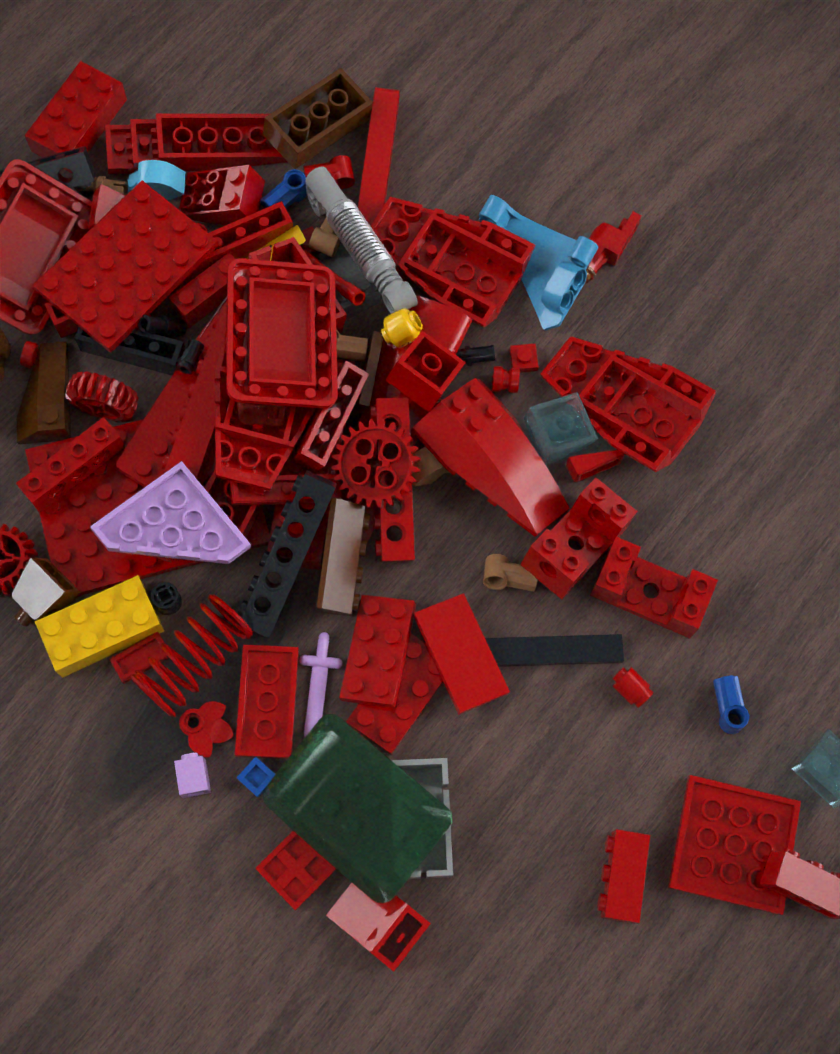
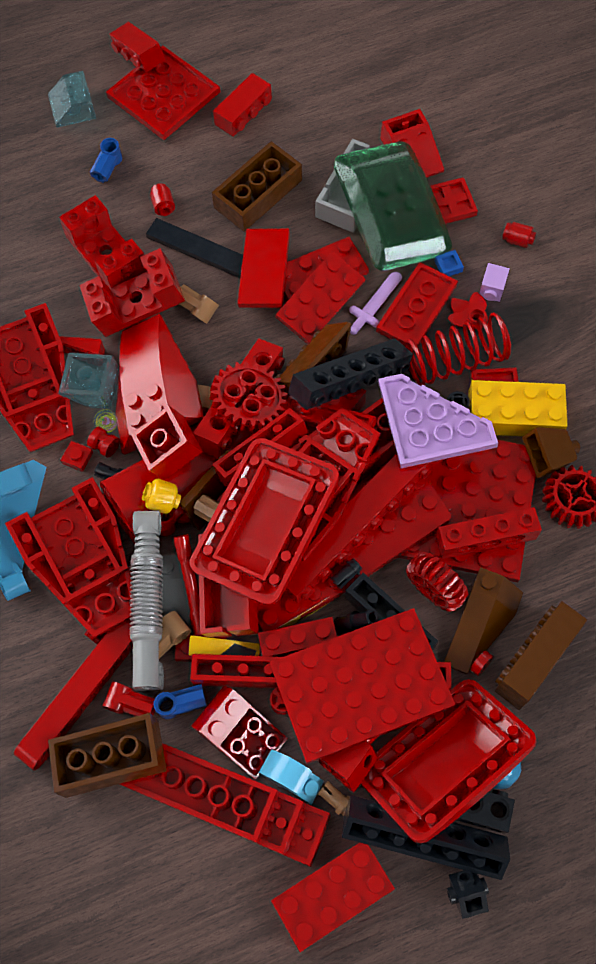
camera: 145 degrees left, 5 degrees down
(190, 863) = (519, 234): none -> red brick
(519, 405) = (106, 419): none -> clear light blue tile
(532, 757) = (257, 186): none -> reddish brown brick

